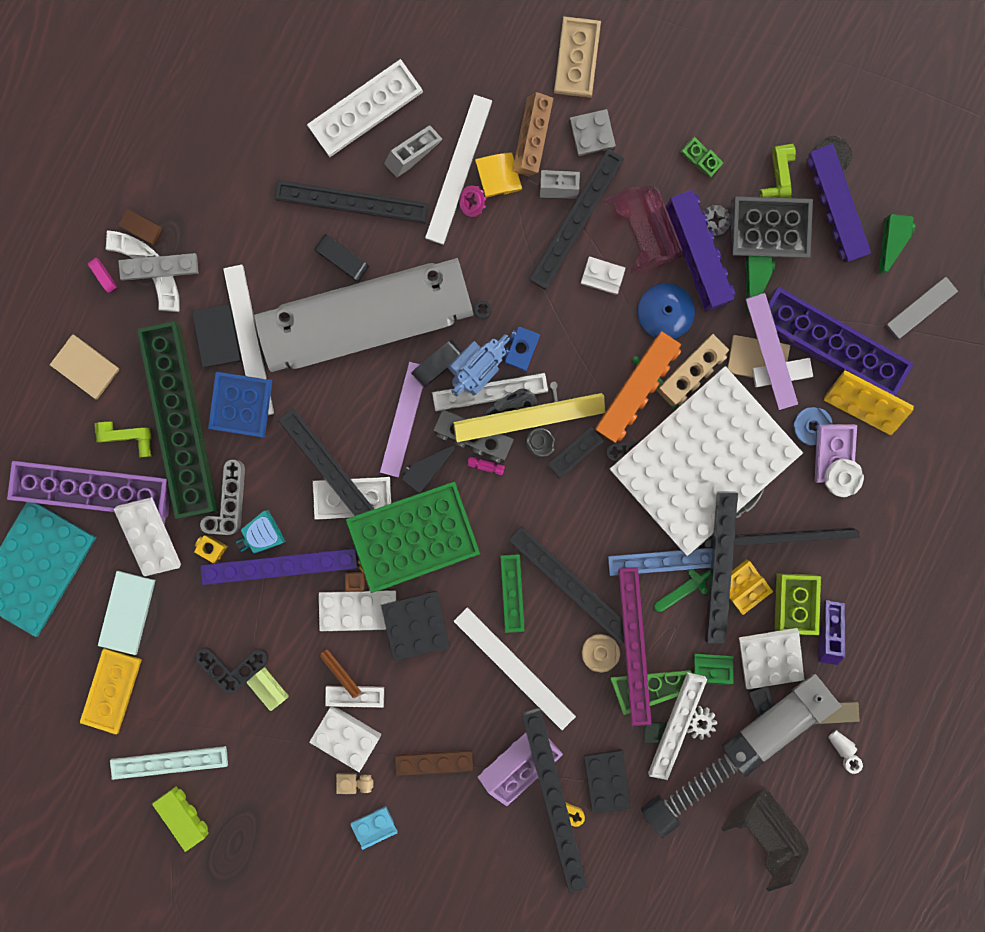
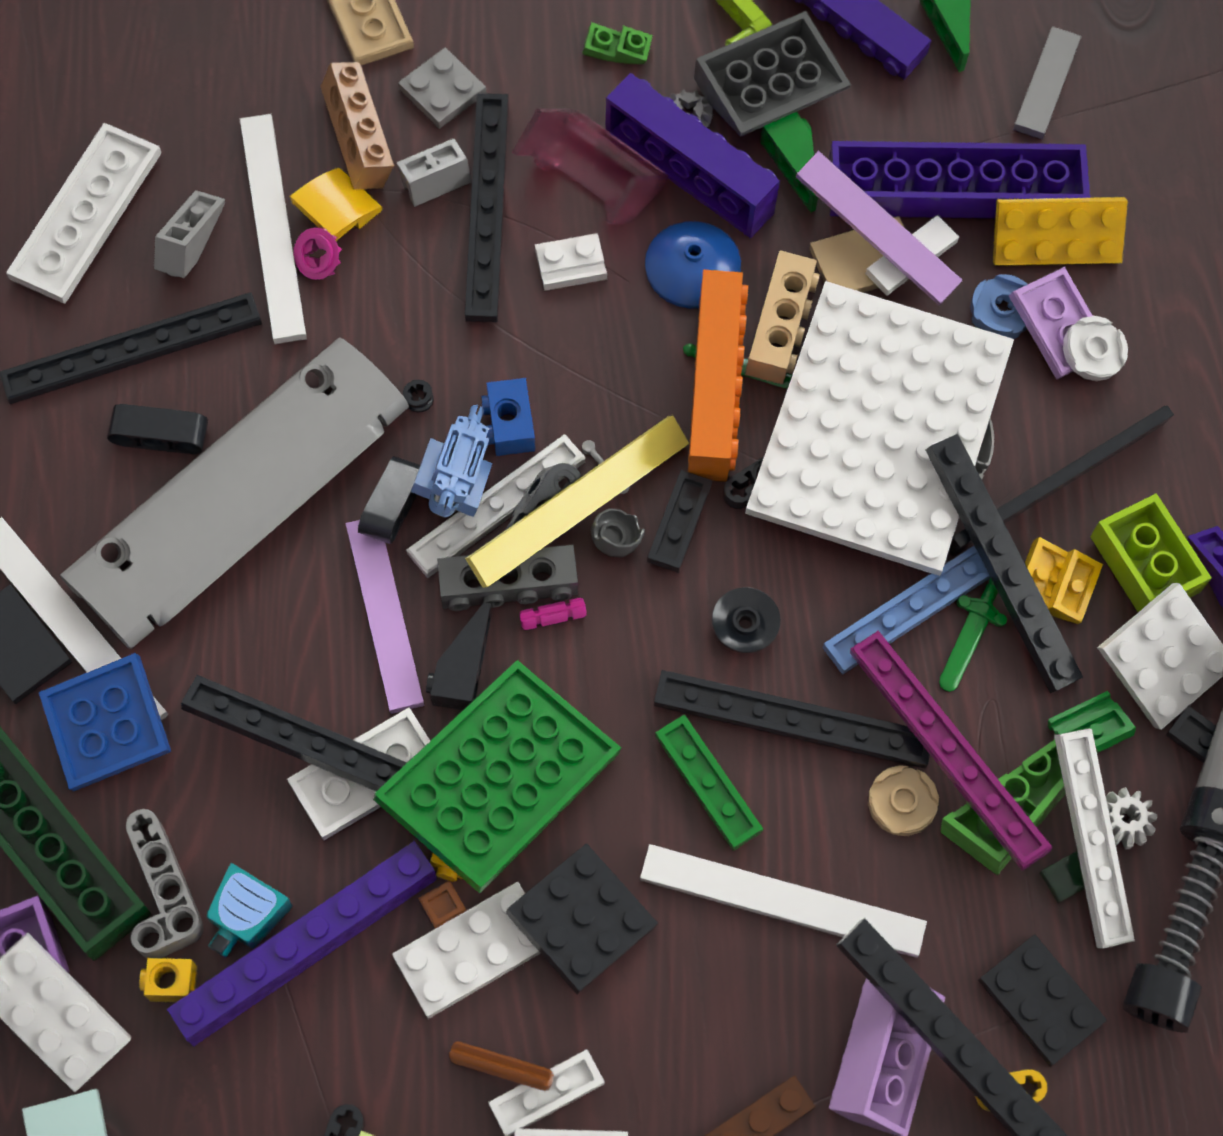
camera: 30 degrees left, 20 degrees down
(587, 527) = (747, 605): none -> black dish

